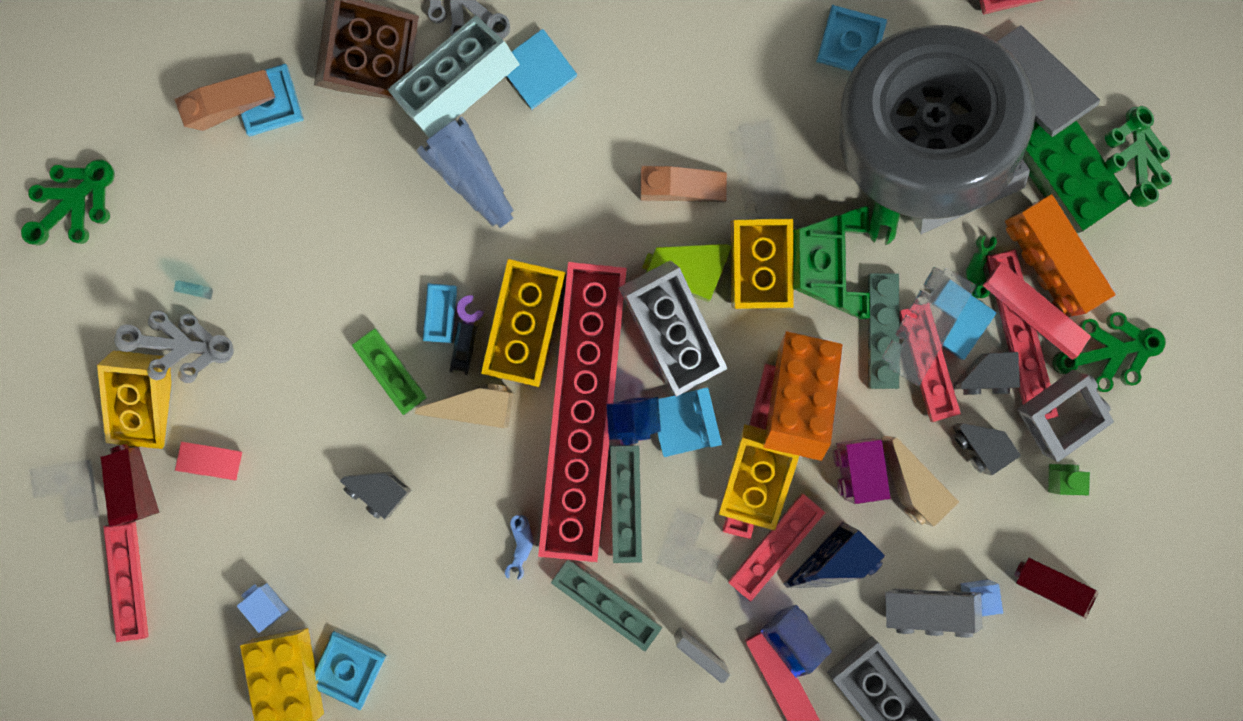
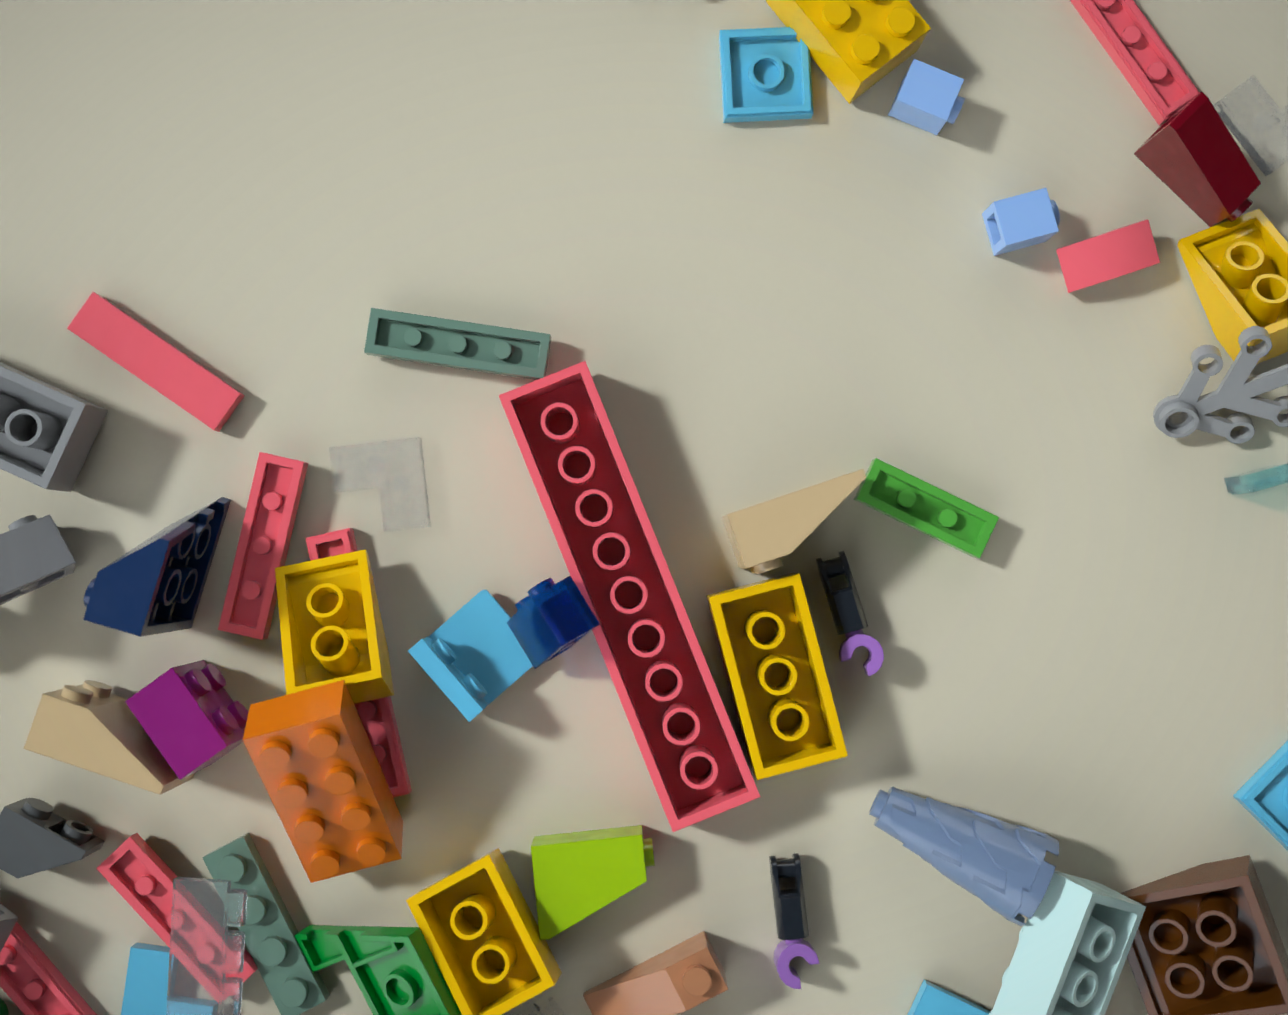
camera: 155 degrees right, 0 degrees up
(247, 506) = (1021, 221): none -> light blue brick
(380, 492) = (852, 336): dark grey slope -> none
(440, 313) = (899, 625): medium azure tile -> none
(524, 541) = (616, 371): light blue arm -> none
(588, 183) = (790, 920): none -> black piece
(626, 504) = (502, 496): sand green plate -> none
(673, 327) = (562, 782): light grey brick -> none
(701, 655) = (287, 342): light grey tile -> none
(796, 641) = (167, 430): clear blue brick -> none
(992, 371) = (81, 951): dark grey slope -> none

